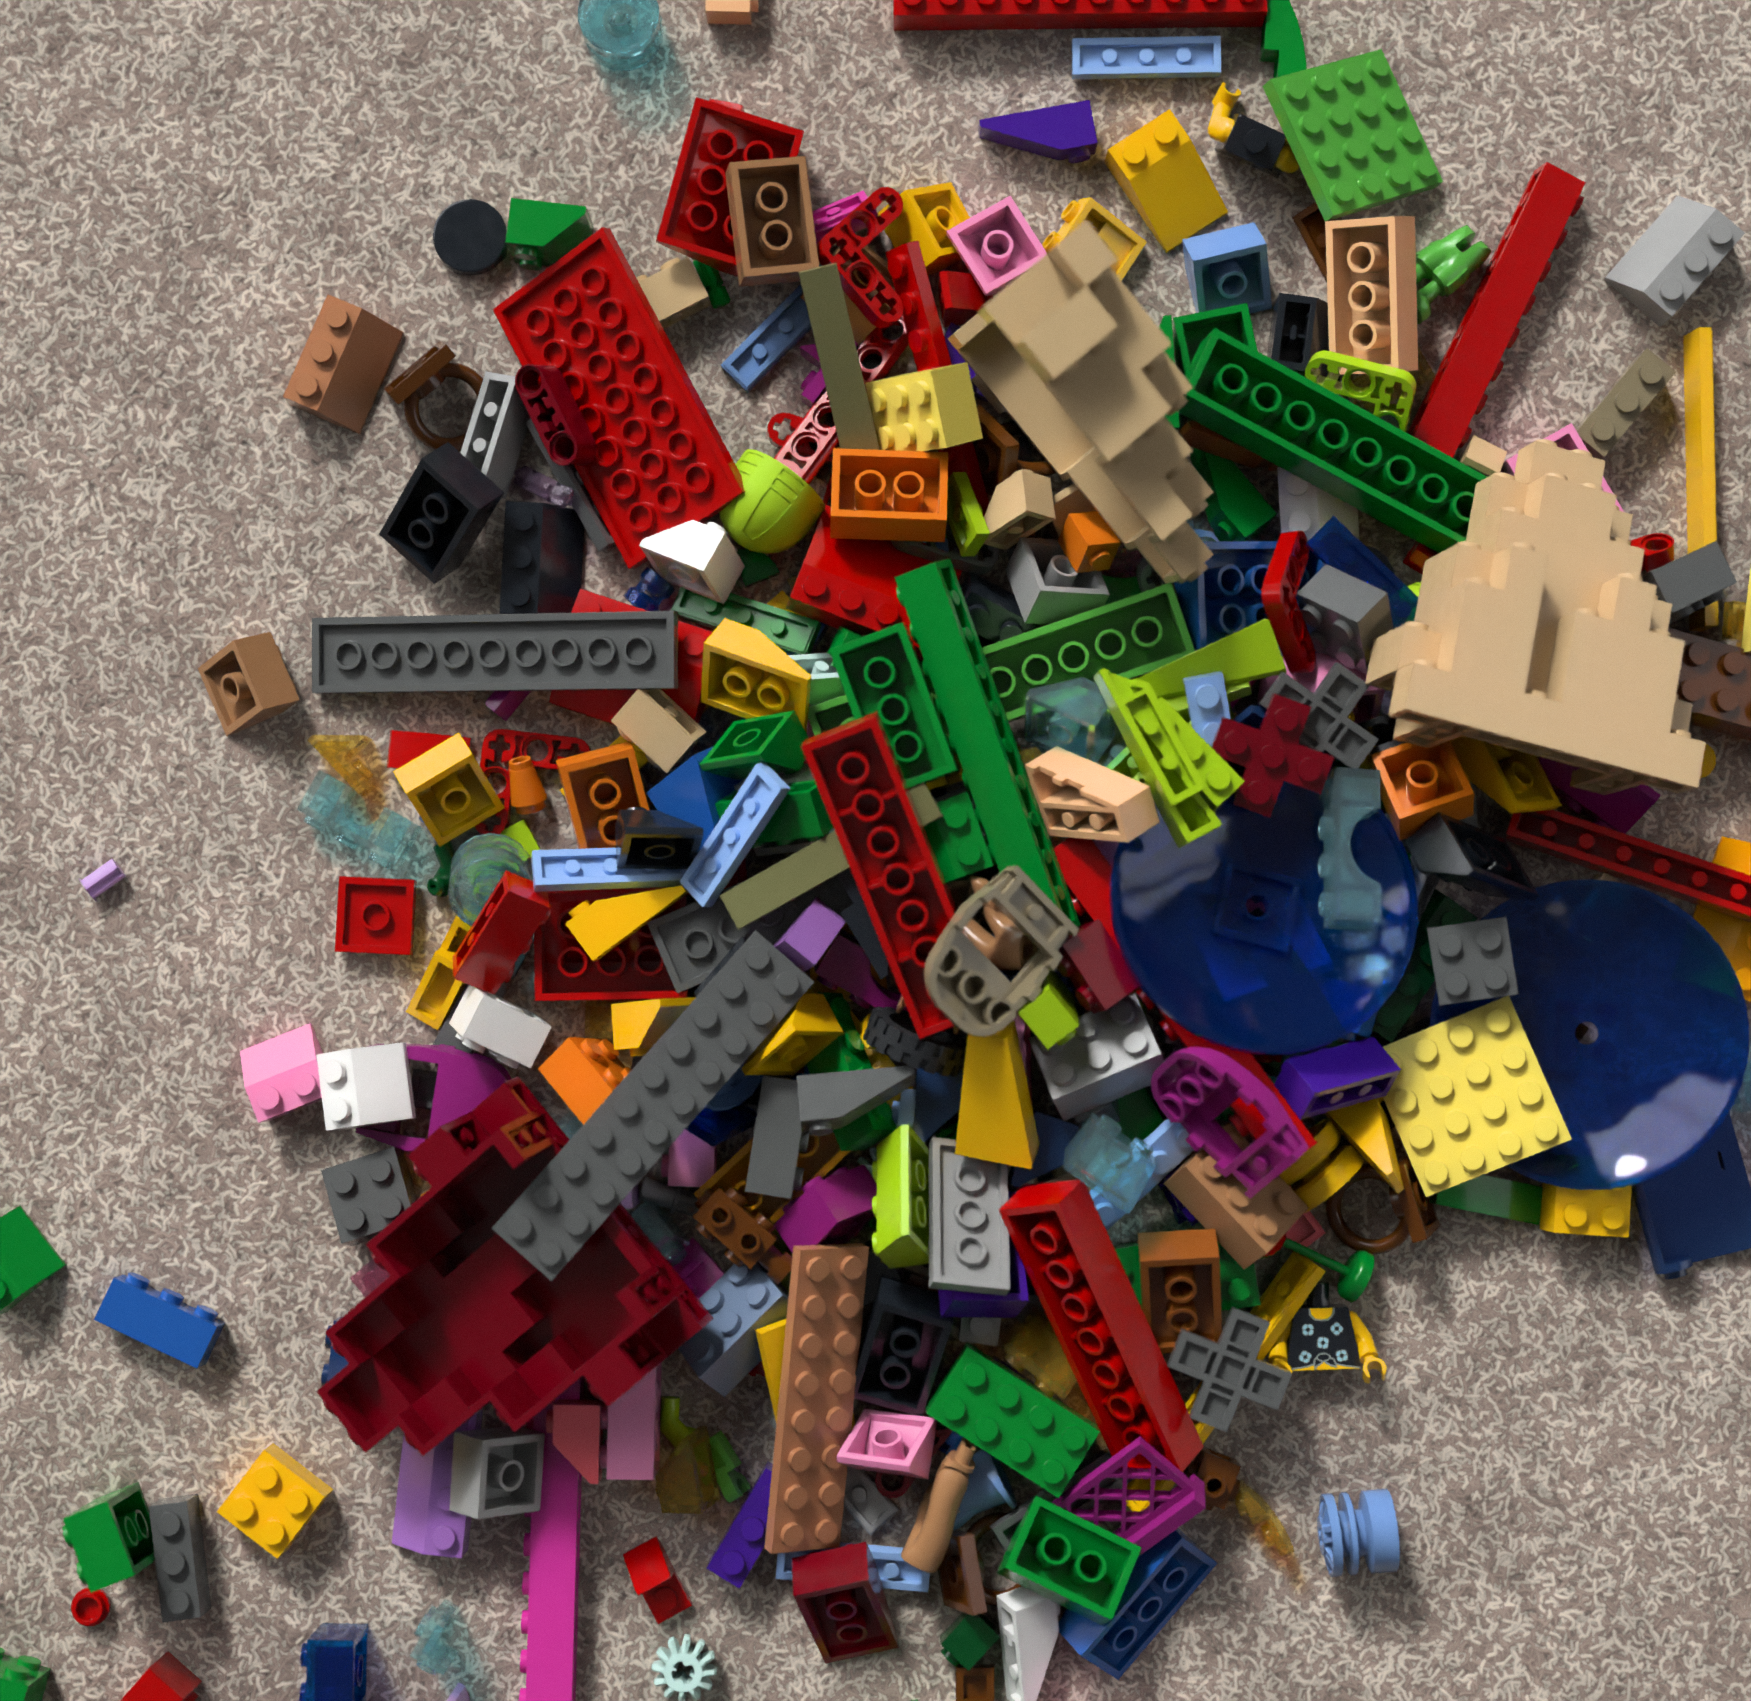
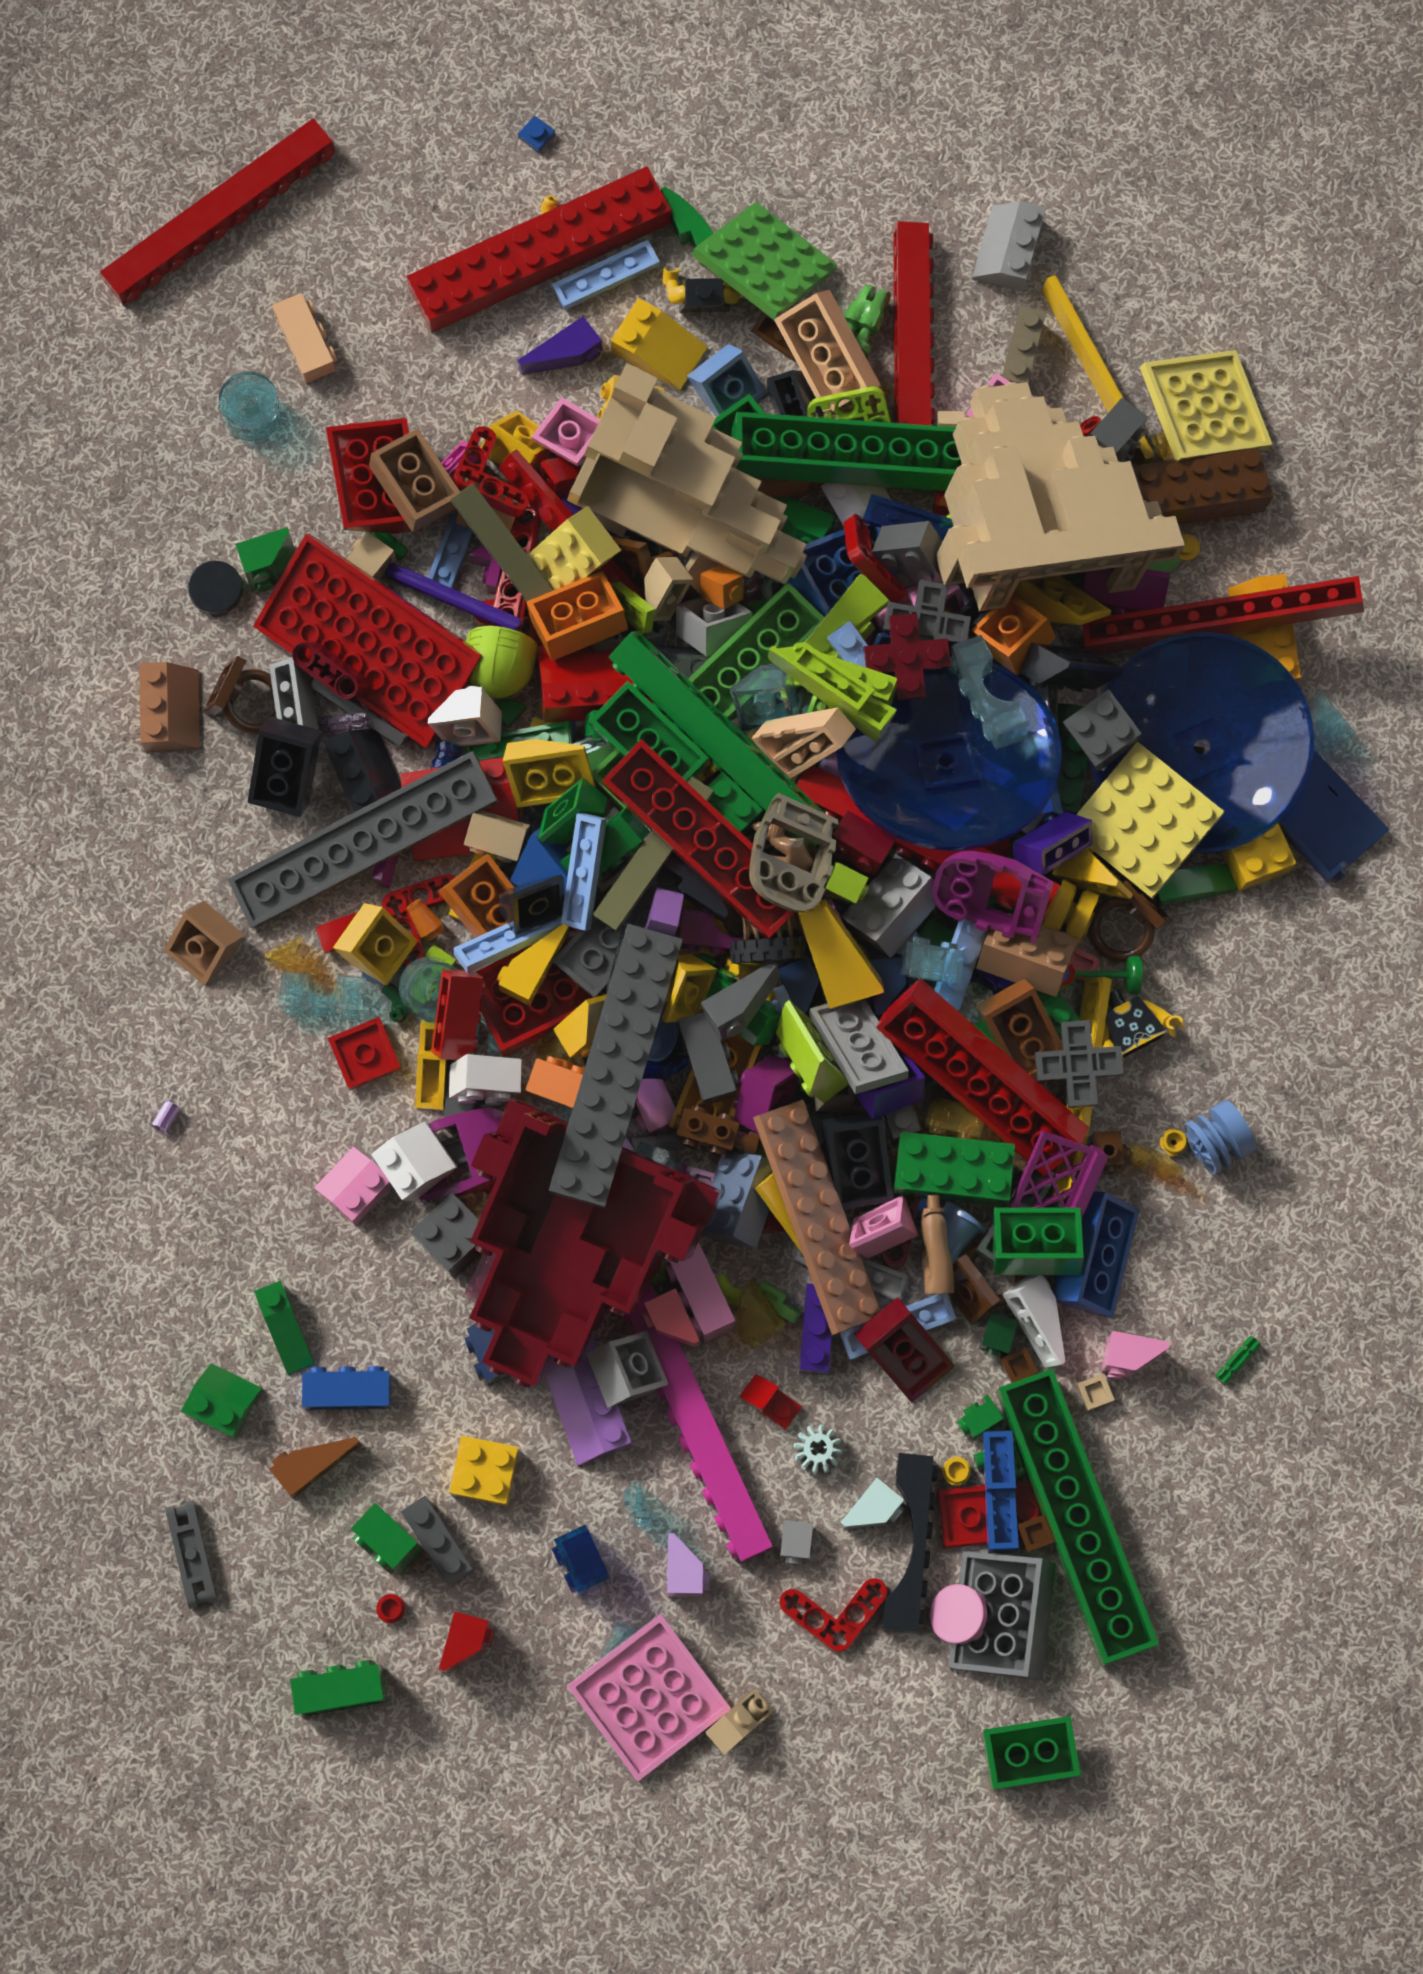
camera: 30 degrees left, 10 degrees down
(70, 1387) = (306, 1465): none -> dark orange slope
(122, 1205) = (284, 1327): none -> green slope
(753, 394) = (453, 597): none -> dark purple axle
(1307, 1510) = (1179, 1137): none -> yellow plate

